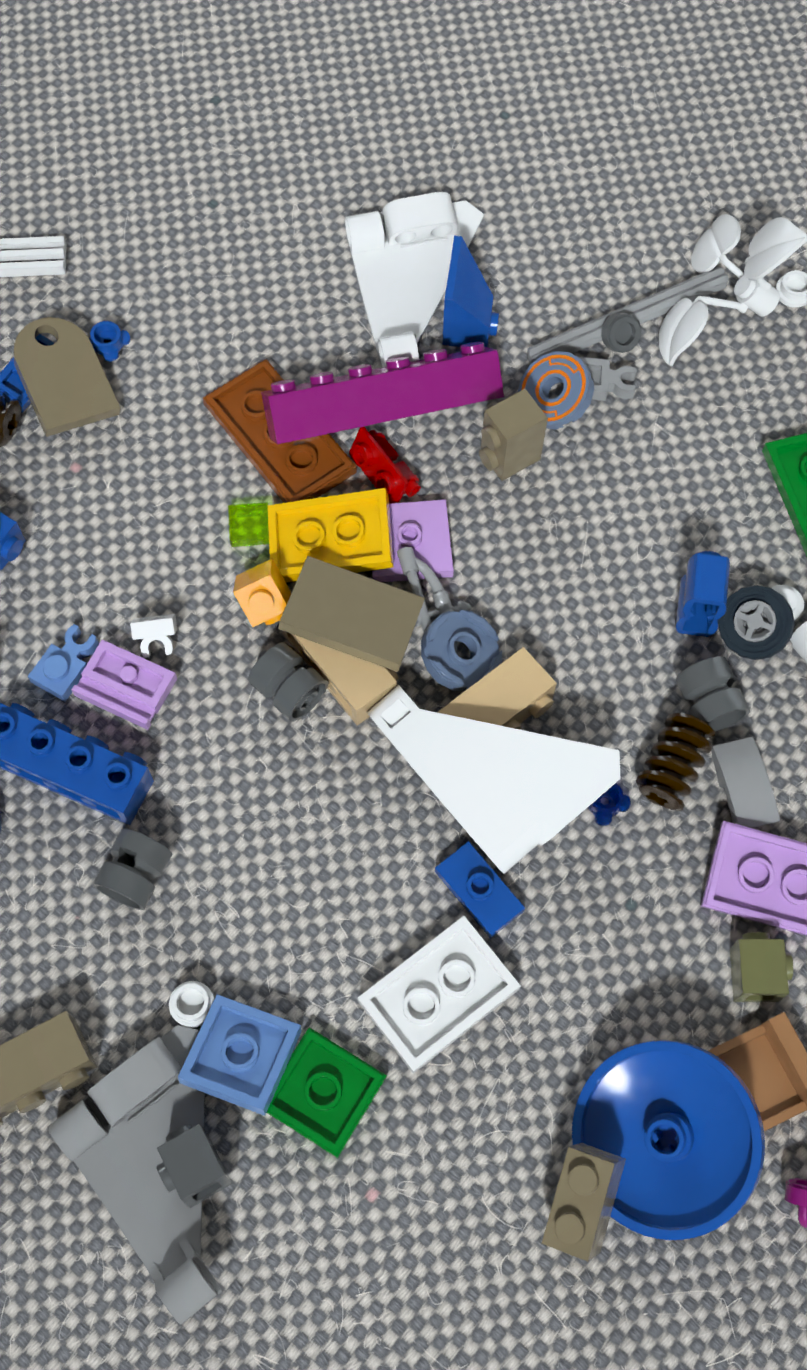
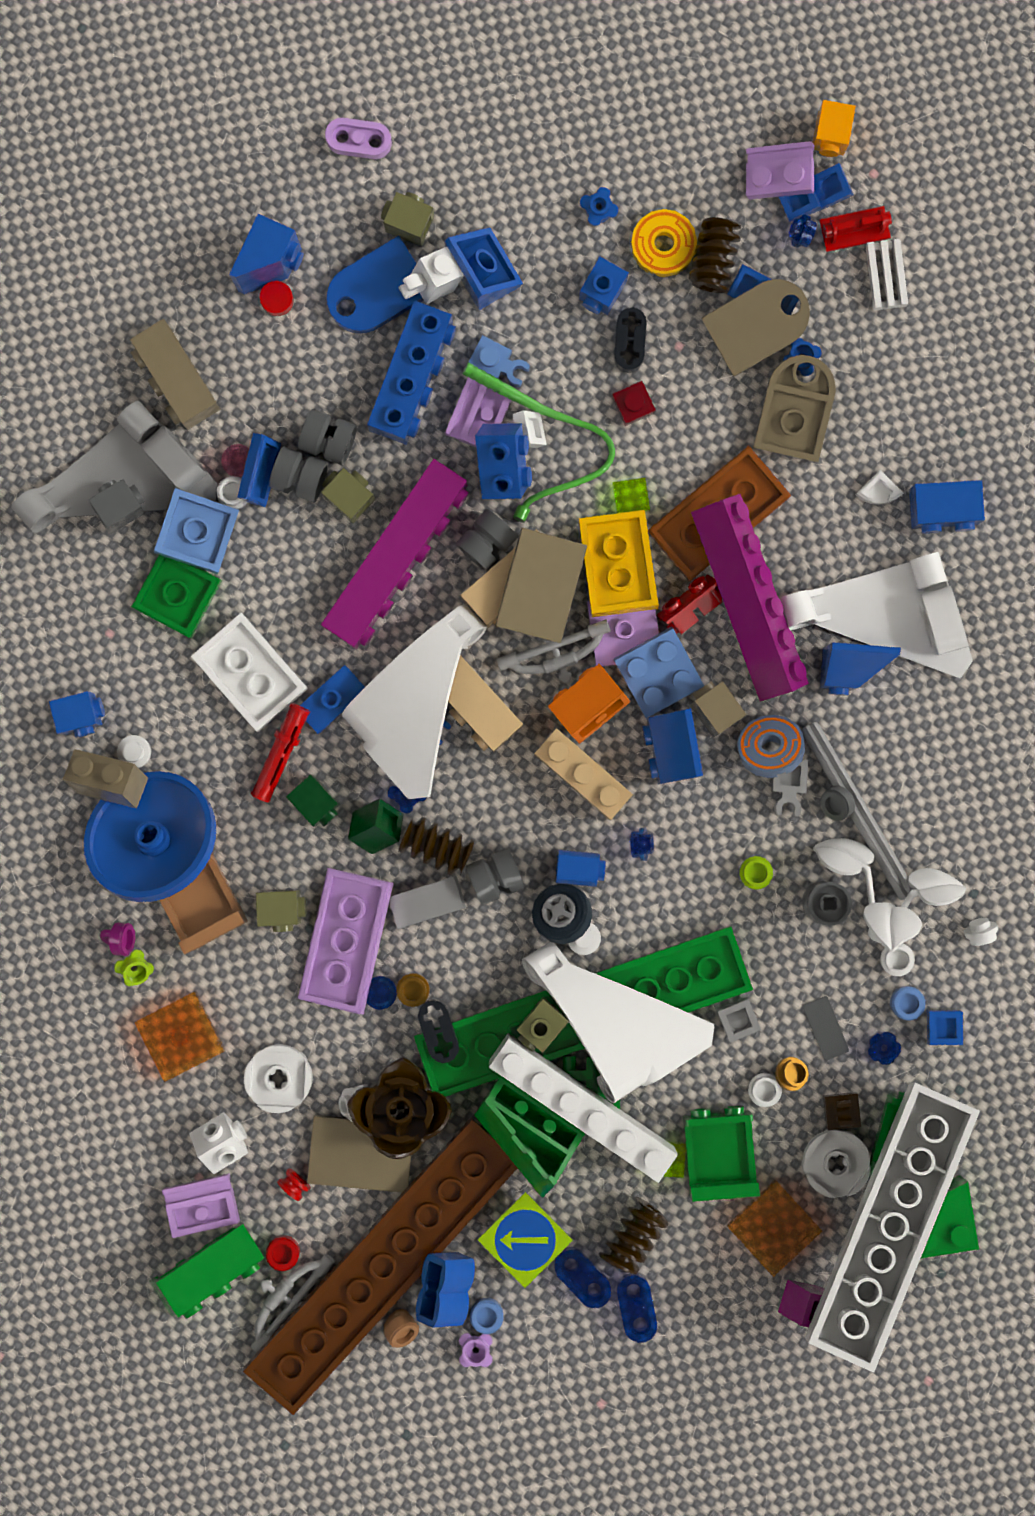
camera: 90 degrees right, 20 degrees up
(60, 514) = (622, 340): none -> black beam
(105, 641) = (515, 395): none -> bright green piece
(137, 515) = (633, 403): none -> dark red plate
(148, 995) = (234, 459): none -> clear pink plate
(165, 963) = (258, 470): none -> blue tile
(167, 345) = (796, 412): none -> dark tan tile
(178, 908) = (298, 474): none -> dark grey wheel
(190, 649) = (503, 461): none -> blue brick
(210, 849) = (348, 493): none -> olive brick
(262, 593) = (559, 512): light orange brick -> none
(268, 278) = (879, 490): none -> white tile
(292, 212) = (946, 506): none -> blue brick
(298, 795) = (395, 554): none -> magenta brick
(441, 658) = (523, 657): sand blue tile -> none
(463, 503) = (658, 672): none -> medium blue plate
(488, 1242) = (77, 714): none -> blue brick
(498, 575) = (588, 703): none -> orange brick
(540, 951) = (280, 752): none -> red pin
(541, 1164) = (134, 750): none -> white plate
(555, 482) = (673, 747): none -> blue slope
(585, 589) = (583, 774): none -> tan brick
(615, 915) = (314, 801): none -> dark green brick
(648, 839) = (375, 826): none -> dark green panel
(669, 533) = (641, 844): none -> clear blue plate
(700, 419) = (756, 872): none -> lime plate
(736, 345) = (826, 903): none -> dark grey wheel
(762, 209) = (981, 932): none -> white plate

